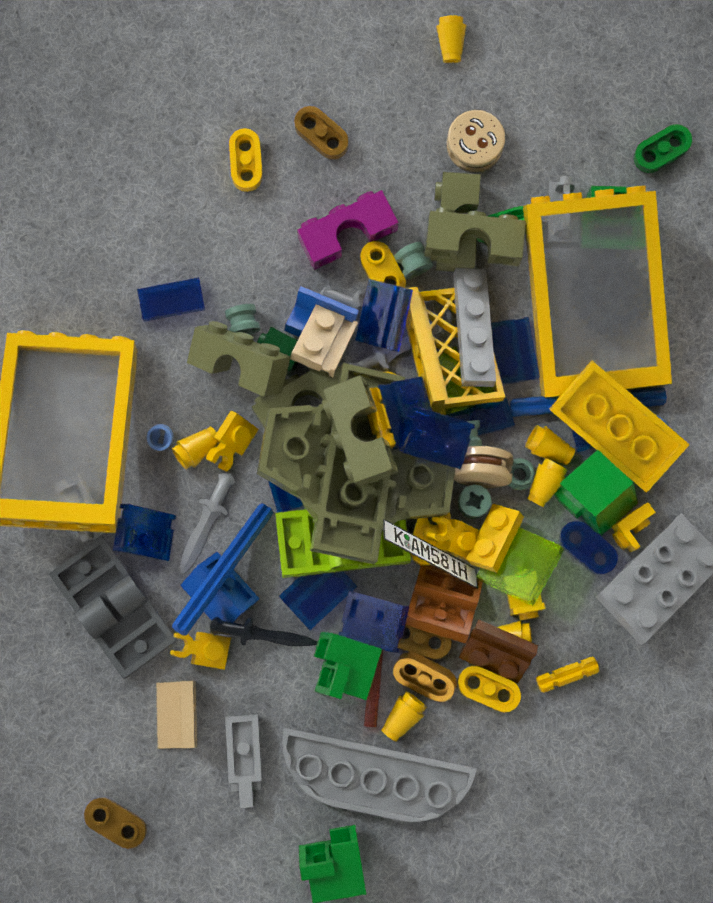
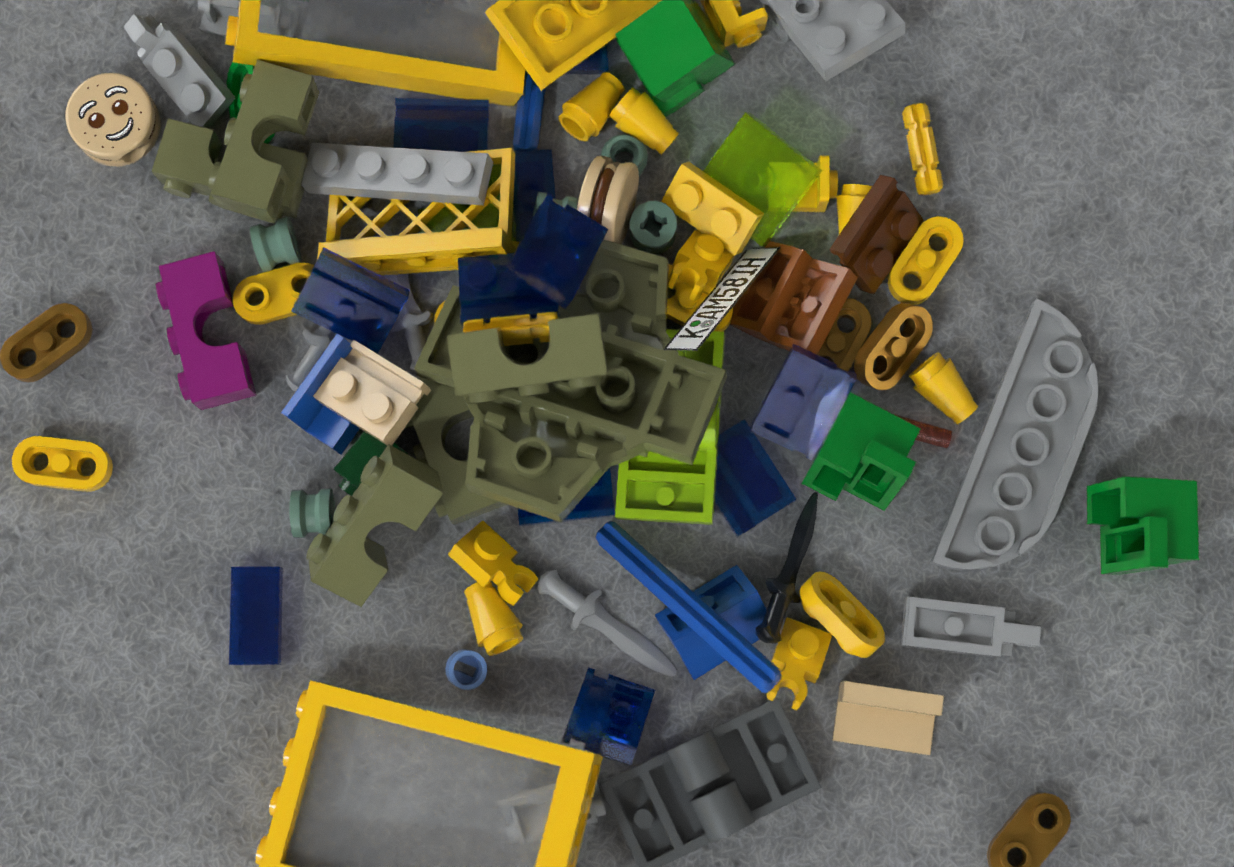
camera: 75 degrees left, 0 degrees up
(238, 673) = (842, 615): none -> yellow plate
(517, 175) = (180, 70): none -> light grey hinge
(587, 547) = (747, 84): clear blue plate -> none

